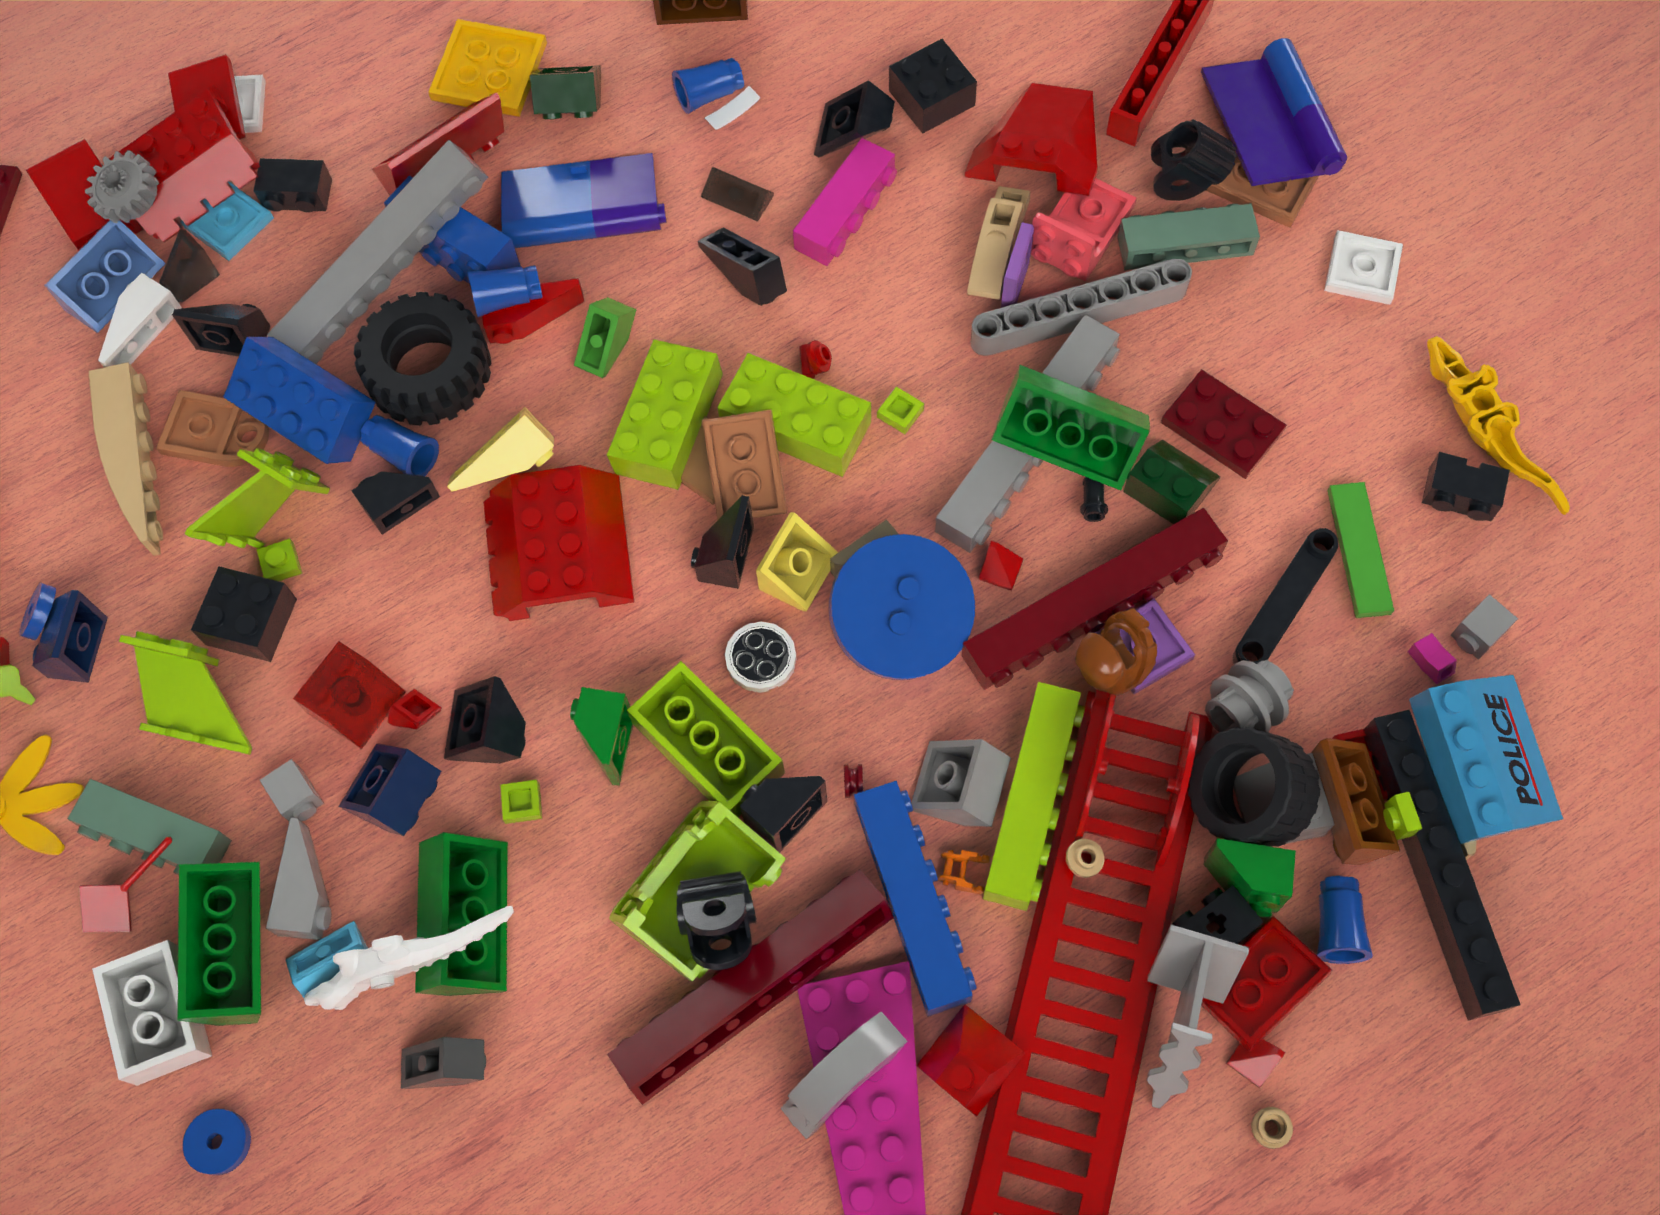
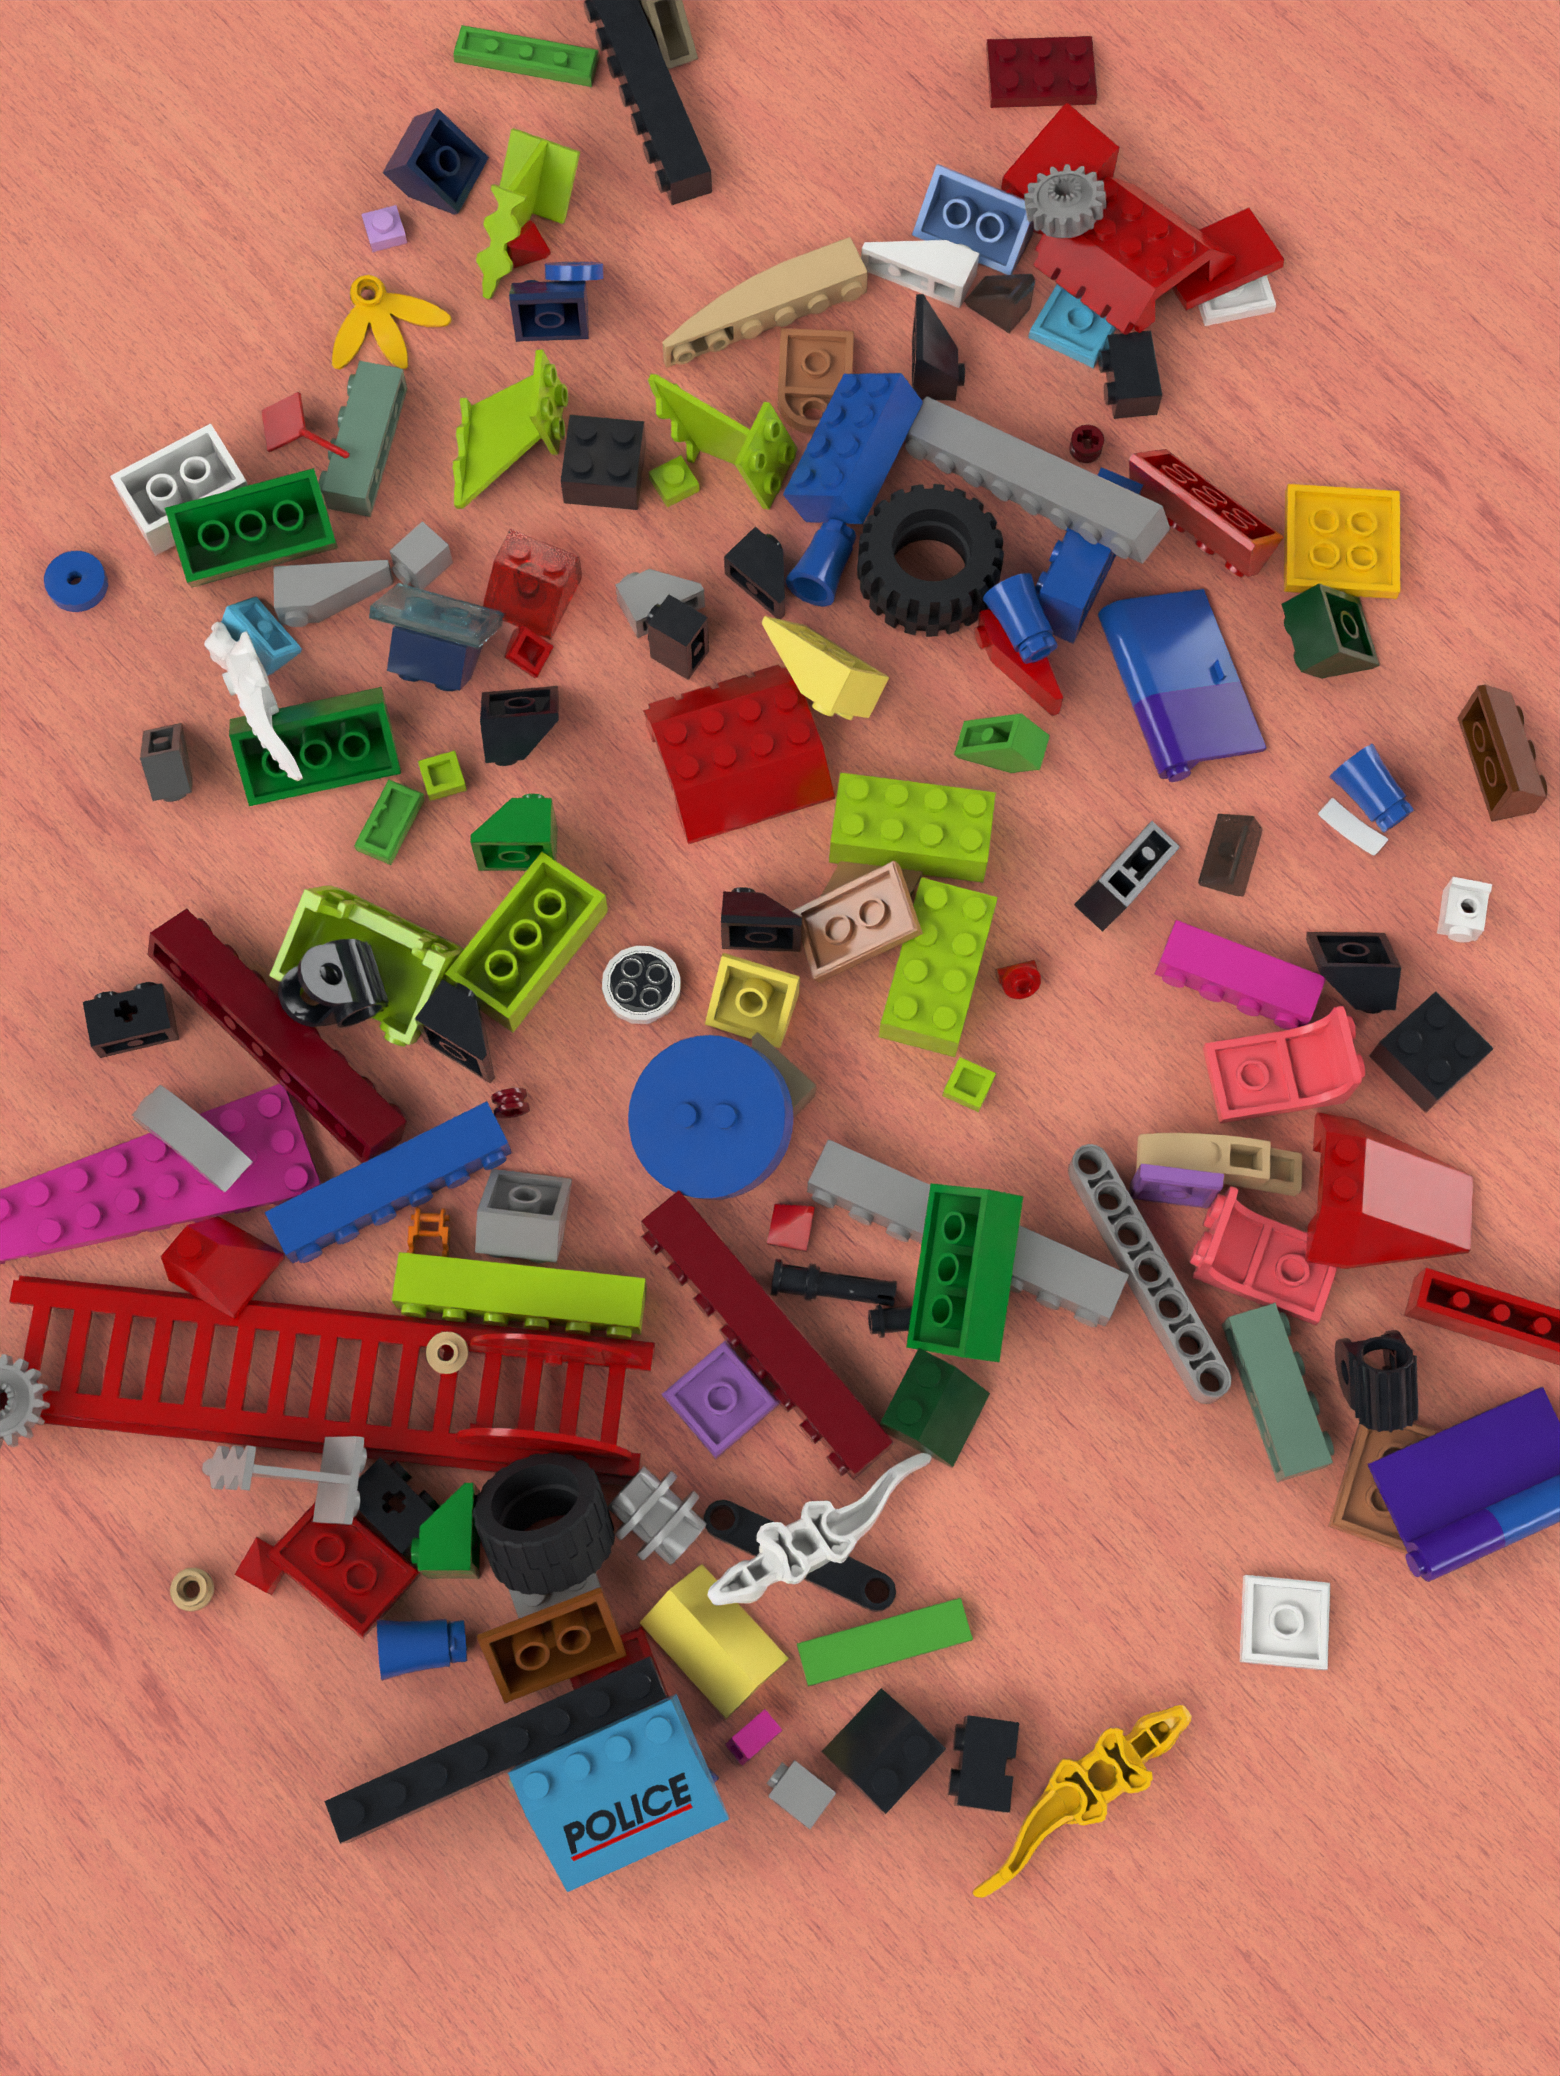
camera: 75 degrees right, 5 degrees up
(340, 224) = (1077, 447): none -> dark red bush
(360, 780) = (437, 615): none -> clear light blue tile
(394, 590) = (641, 591): none -> light grey slope
(440, 570) = (677, 636): none -> black brick
(556, 856) = (389, 822): none -> bright green plate
(718, 1148) = (150, 1025): none -> black brick
(819, 45) = (1461, 895): none -> white brick
(929, 177) = (1285, 1069): none -> coral bracket
(1054, 554) = (812, 1282): none -> black pin
(1106, 660) = (683, 1356): dark orange helmet -> none
(1223, 424) = (1025, 1464): dark red plate -> none
(1285, 580) = (810, 1542): none -> white animal
(1352, 679) = (712, 1643): none -> light yellow slope
(1401, 816) = (534, 1693): lime plate -> none
(1452, 559) = (883, 1750): none -> black slope

